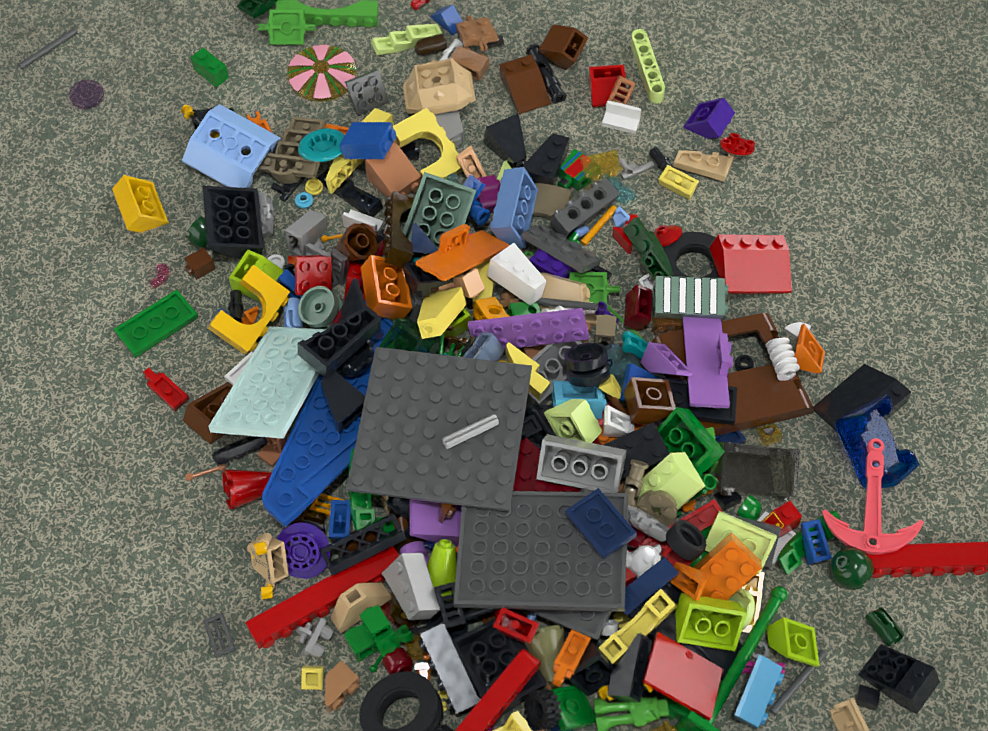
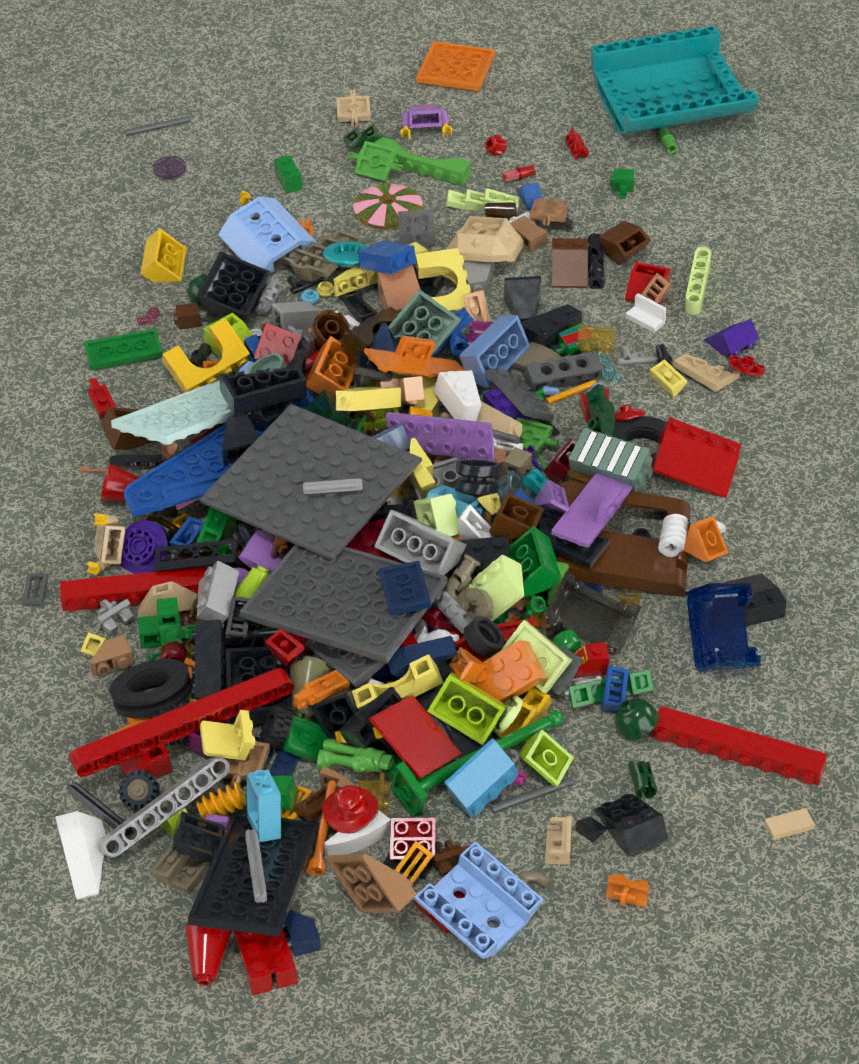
camera: 25 degrees right, 15 degrees down
(872, 518) = (674, 691): coral piece -> none

